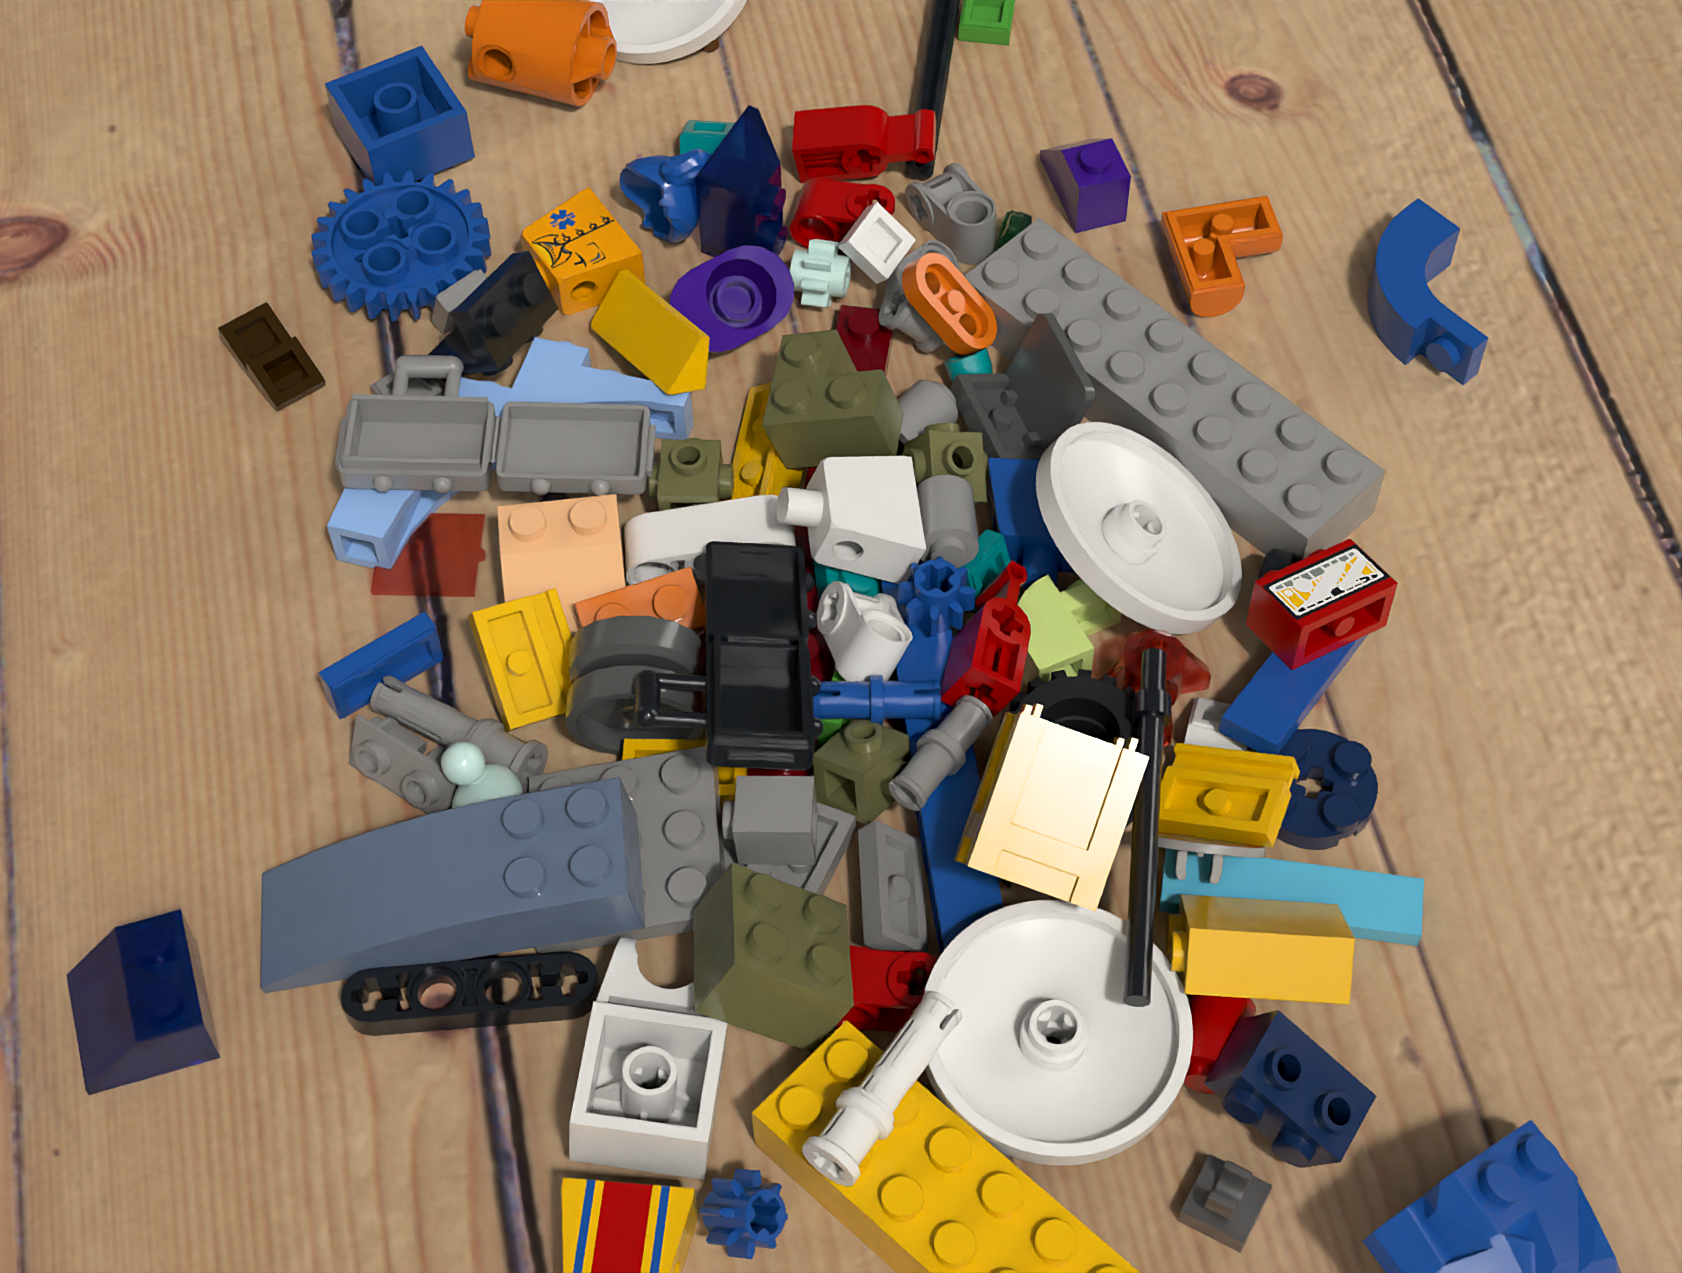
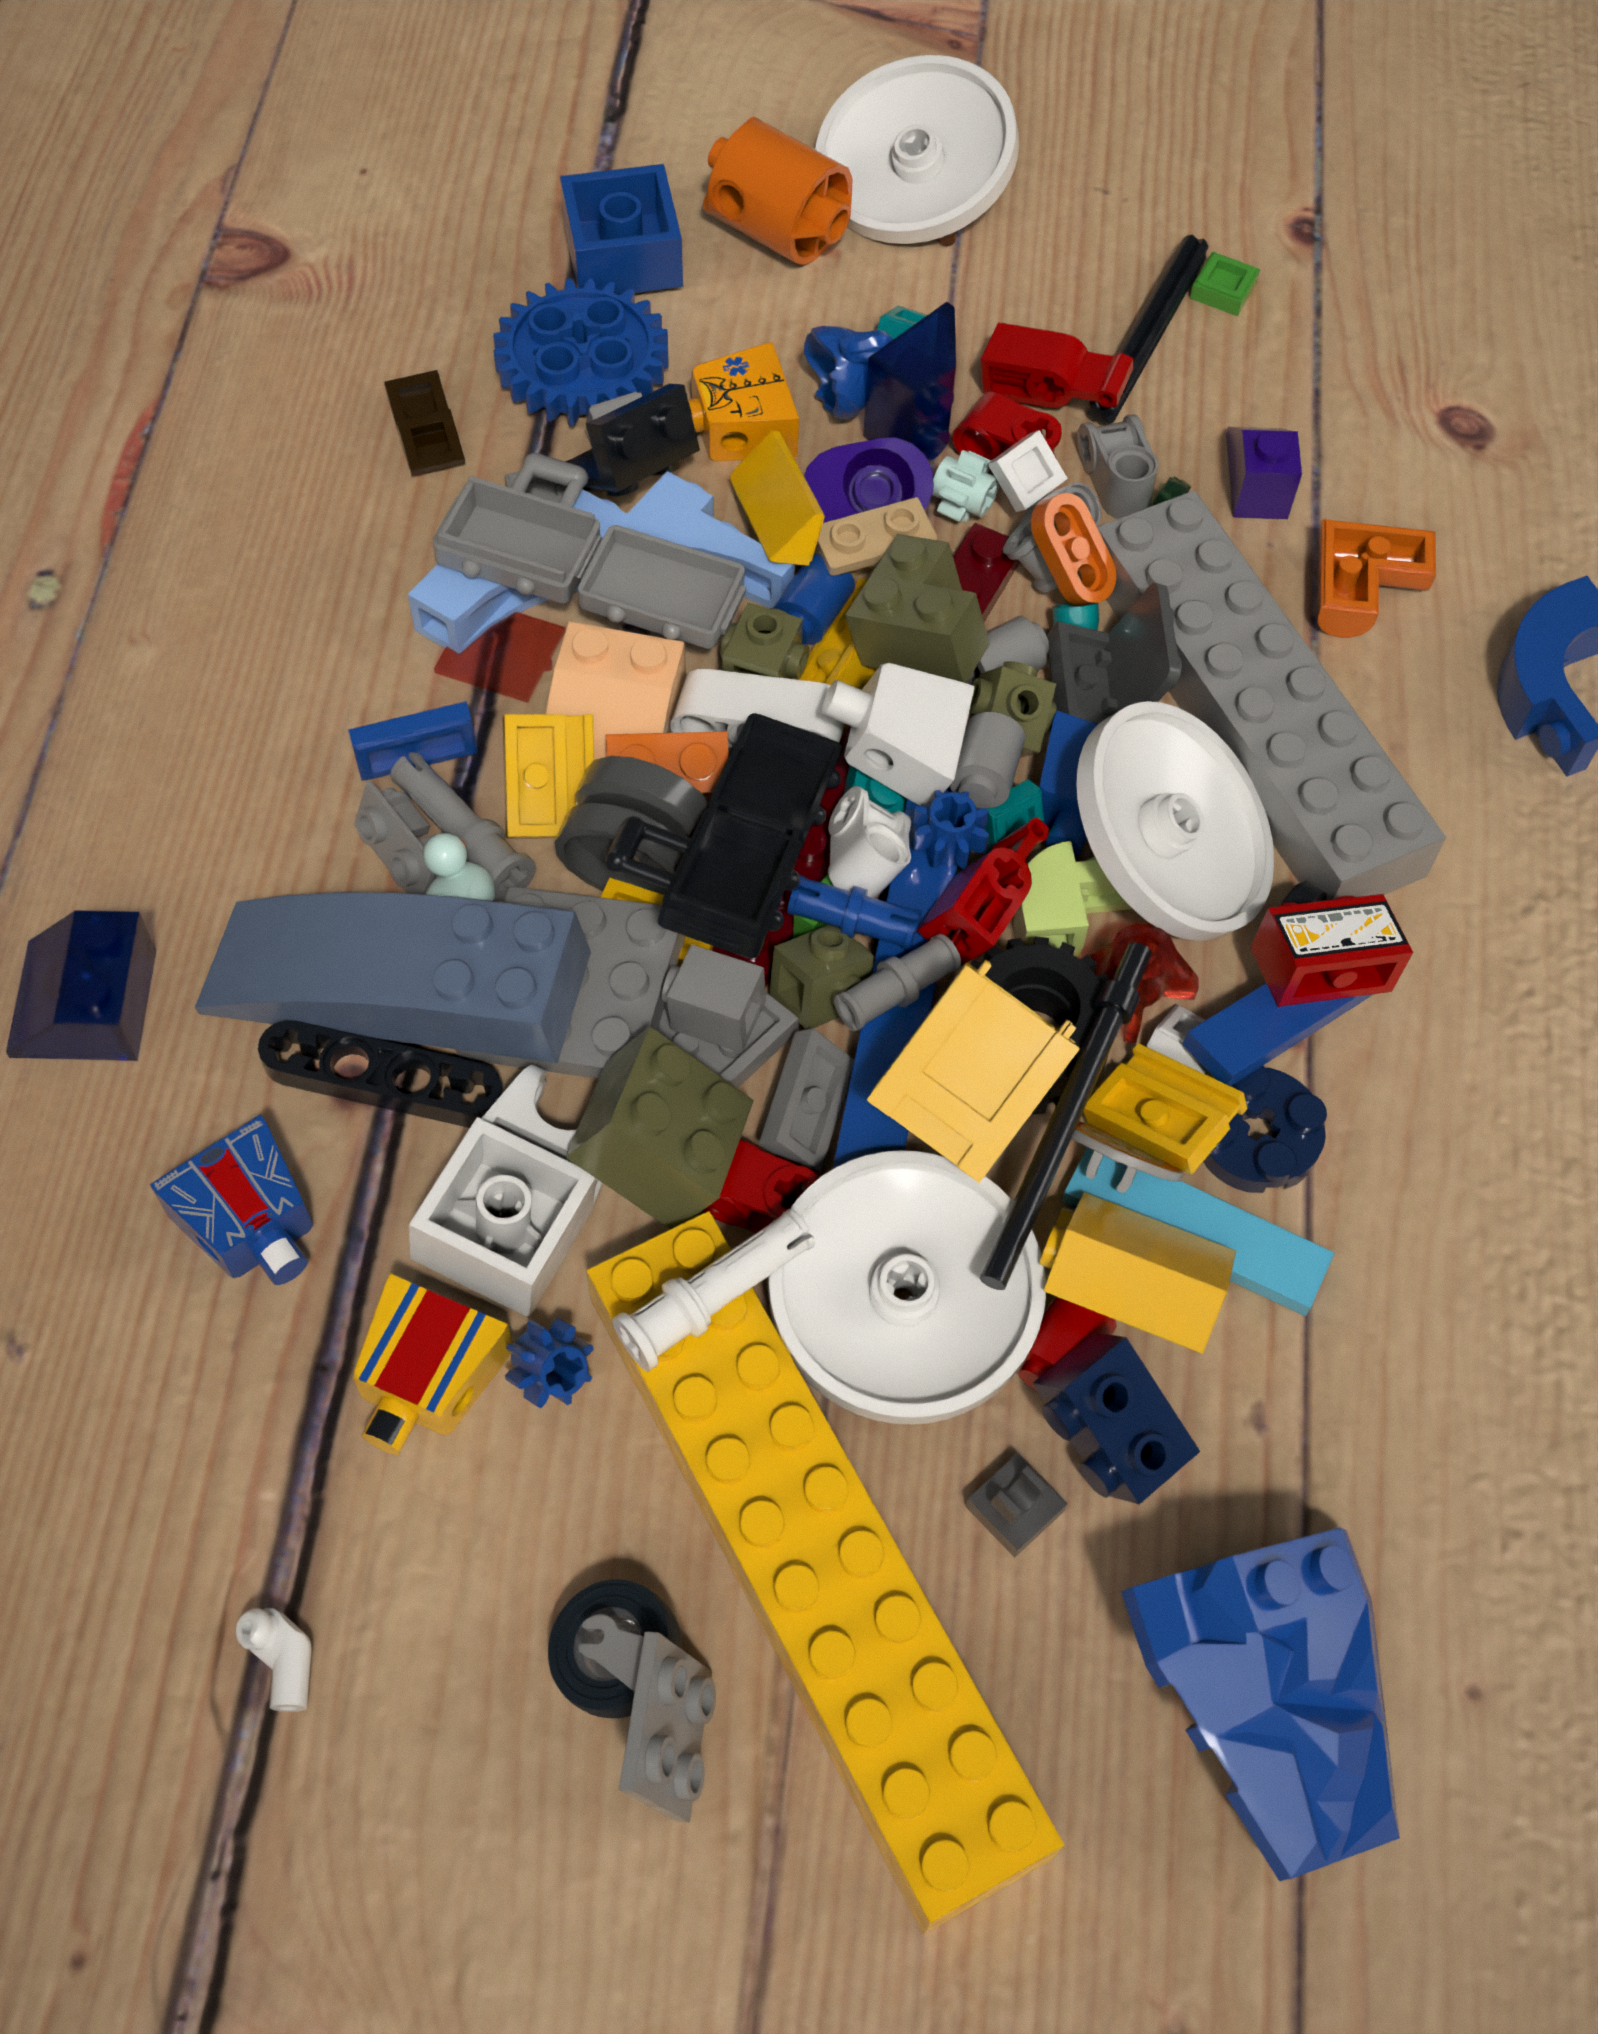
camera: 15 degrees right, 5 degrees up
(384, 1161) = (240, 1204): none -> blue torso
(720, 414) = (816, 598): none -> blue brick
(750, 349) = (861, 539): none -> tan bracket

